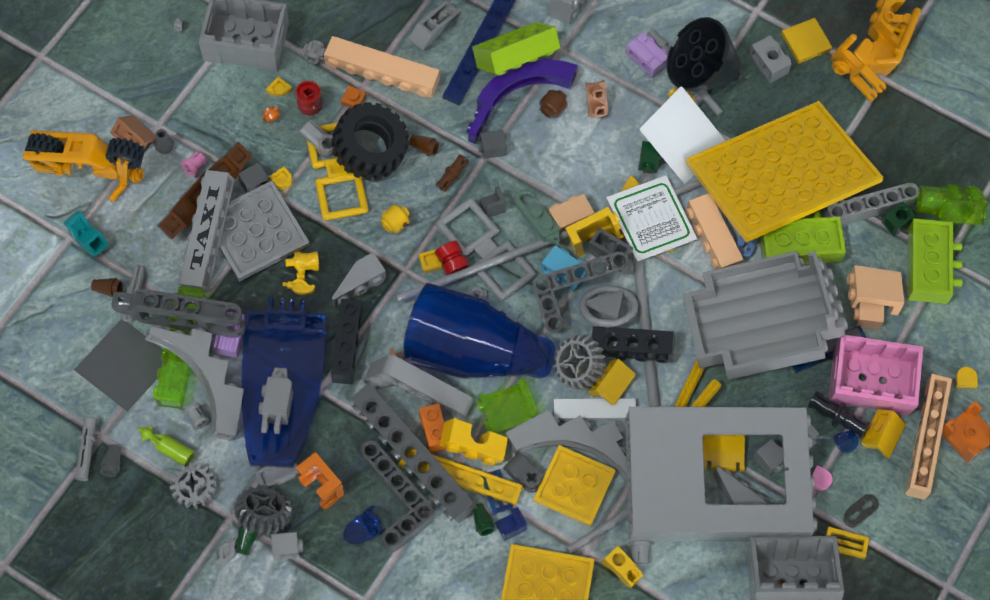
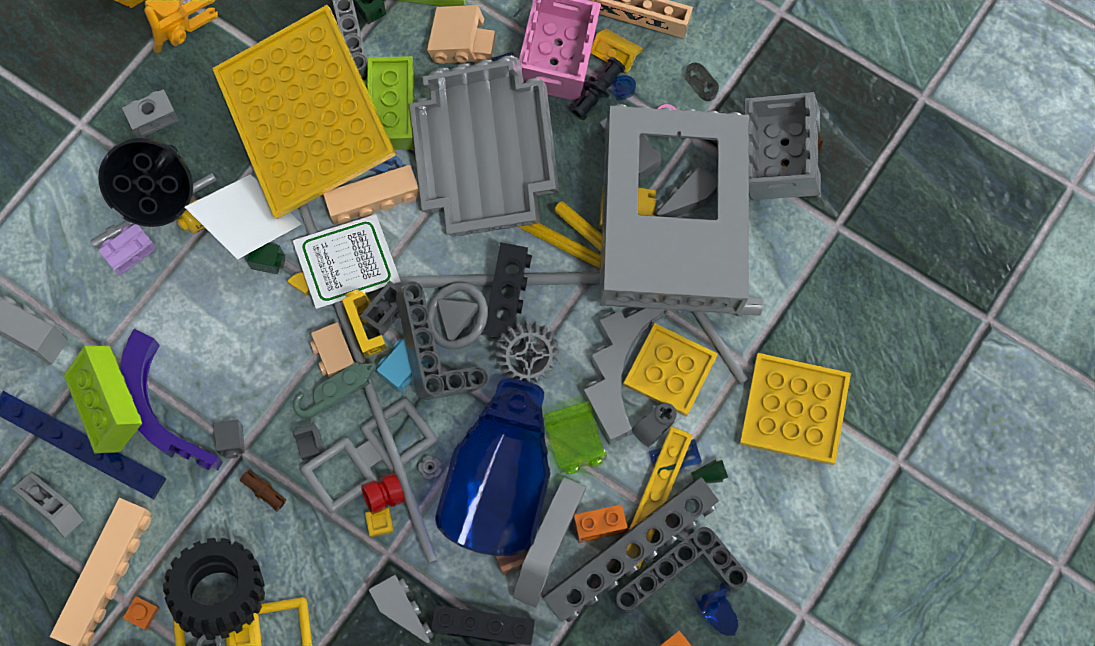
camera: 85 degrees left, 5 degrees up
(395, 219) = (322, 562): yellow head -> none
(426, 145) = (220, 522): reddish brown cone -> none
(457, 438) = (620, 490): yellow arch -> none
(511, 524) = (715, 441): clear blue panel -> none
(553, 103) = (181, 363): reddish brown head -> none
(592, 409) = (578, 342): white tile -> none
(596, 99) = (183, 310): nougat hips -> none
(613, 381) = (551, 315): yellow panel -> none
(623, 567) = (764, 325): yellow leg -> none
(806, 40) = (129, 74): yellow tile -> none
(852, 536) = (742, 82): yellow tile -> none

